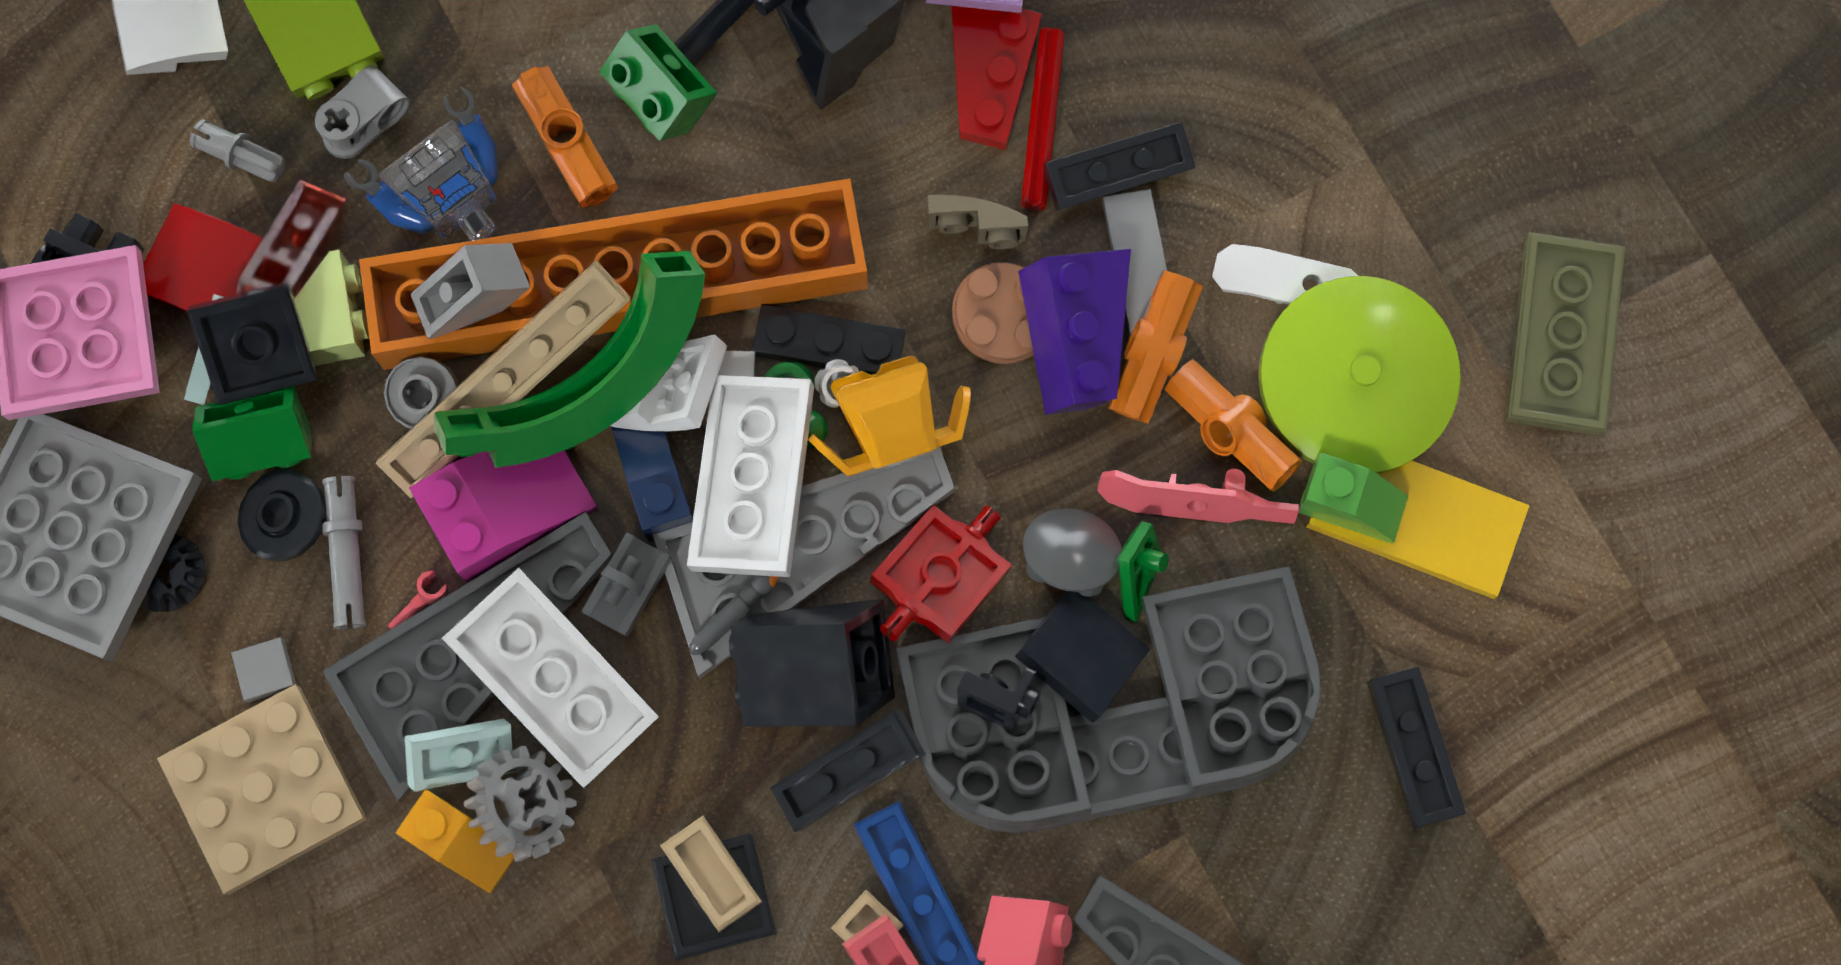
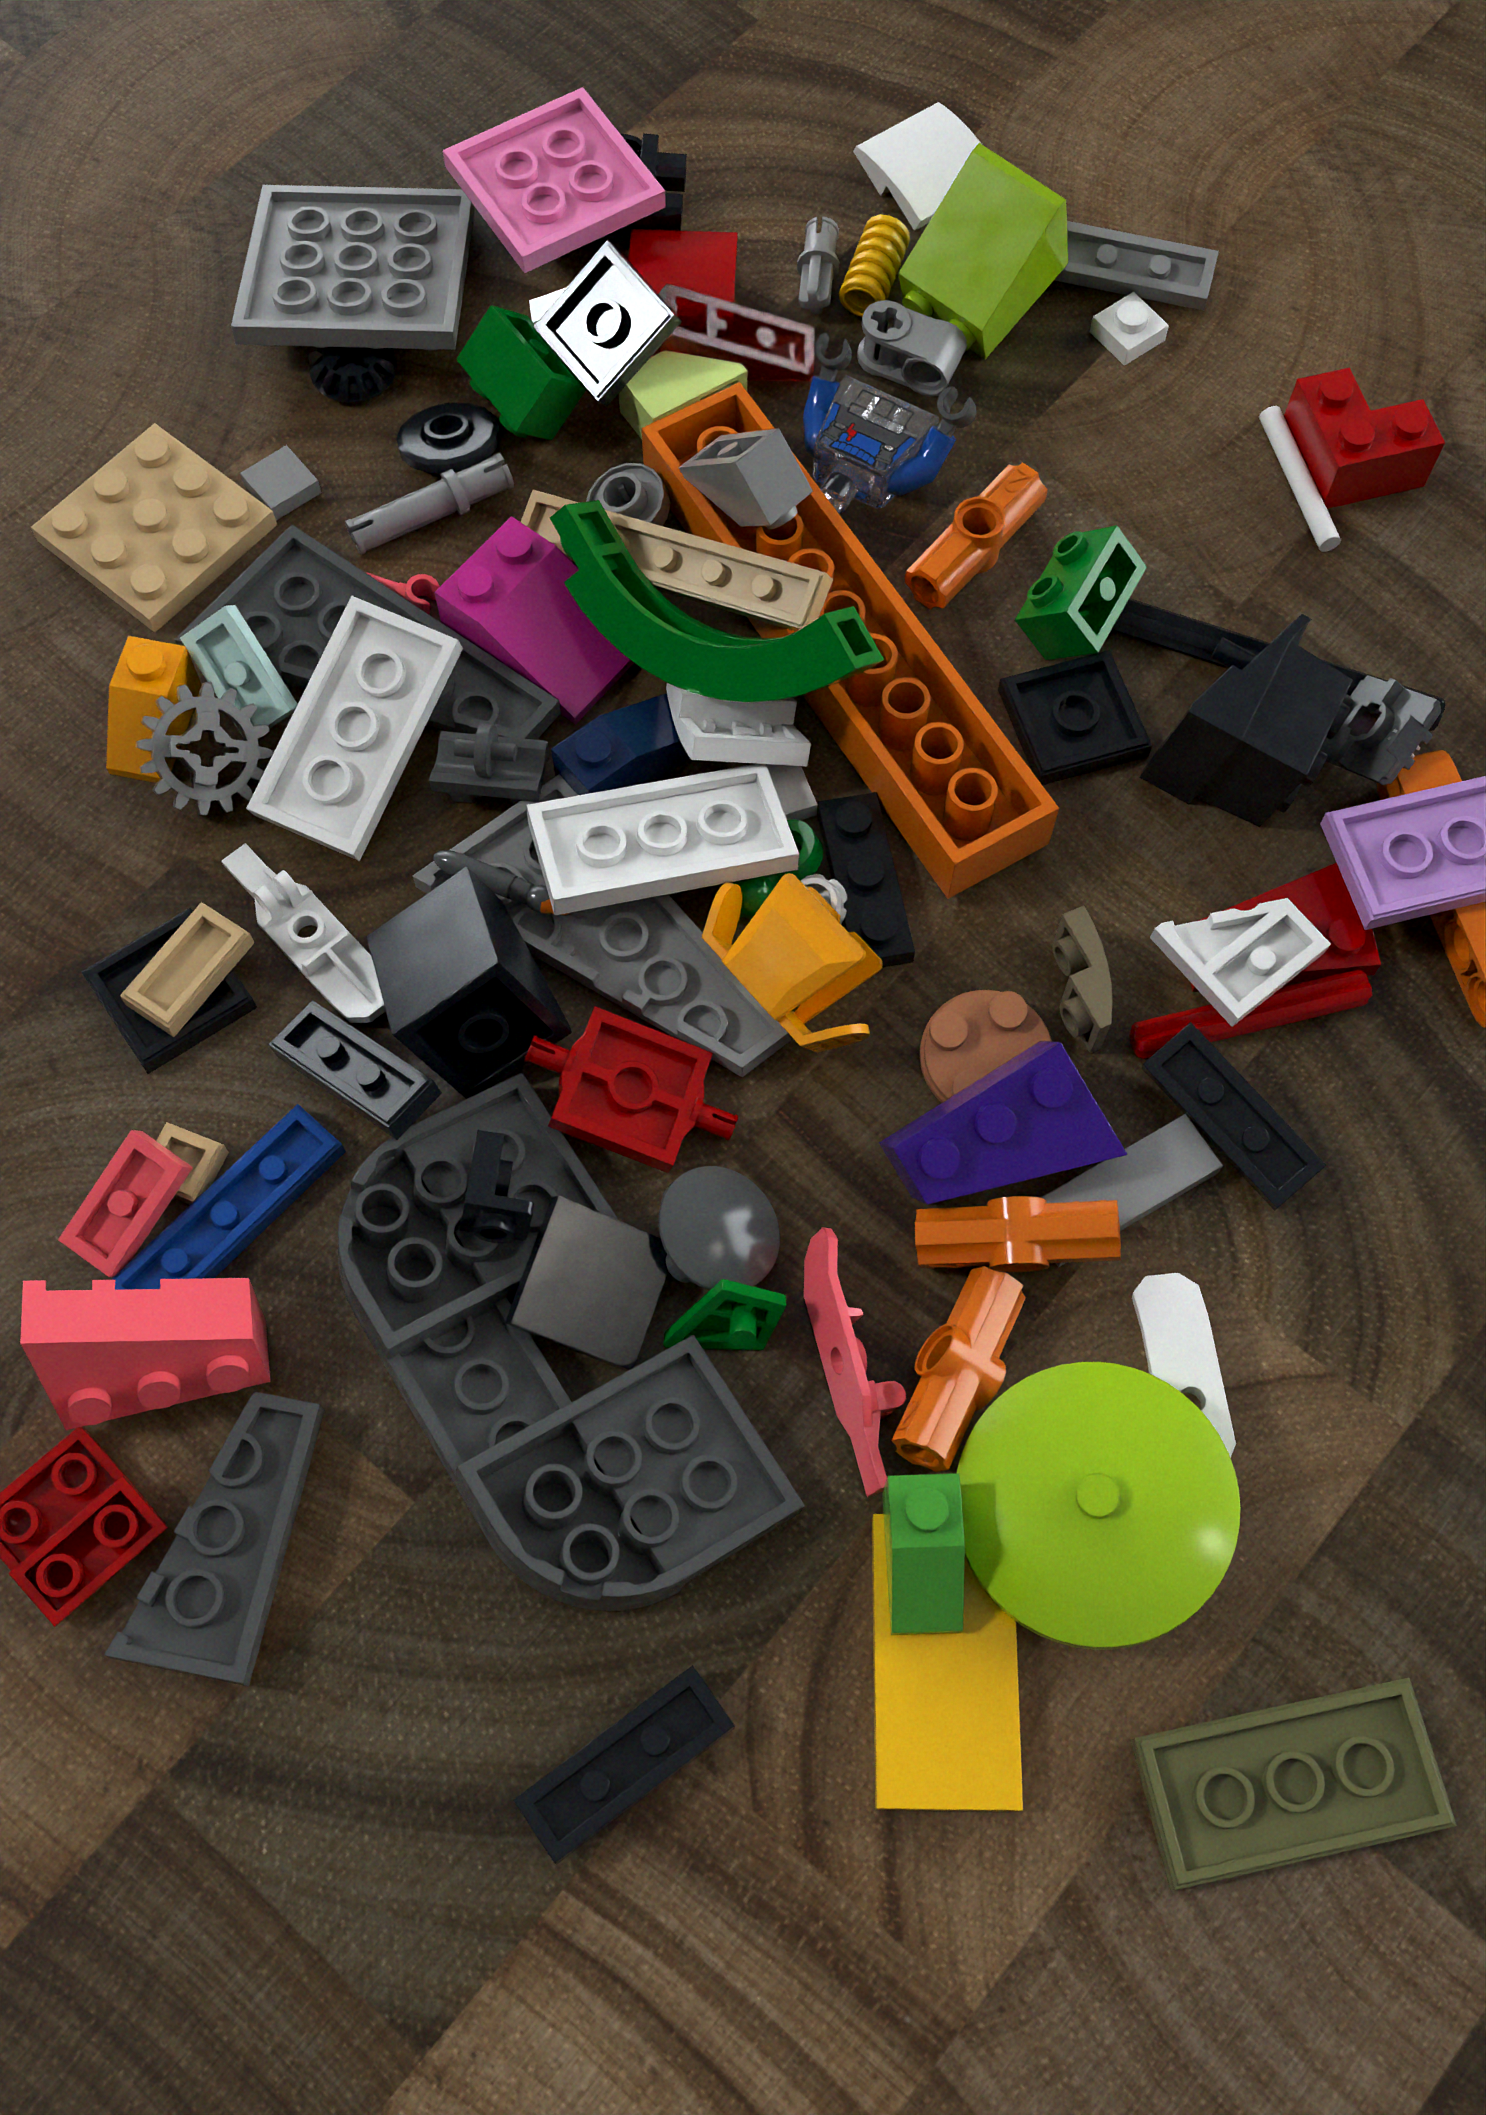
camera: 70 degrees right, 10 degrees down
(260, 106) = (874, 263): none -> yellow piece
(735, 764) = (330, 957): none -> white piece
(752, 134) = (1074, 717): none -> black tile
(1009, 103) = (1242, 955): none -> white wing

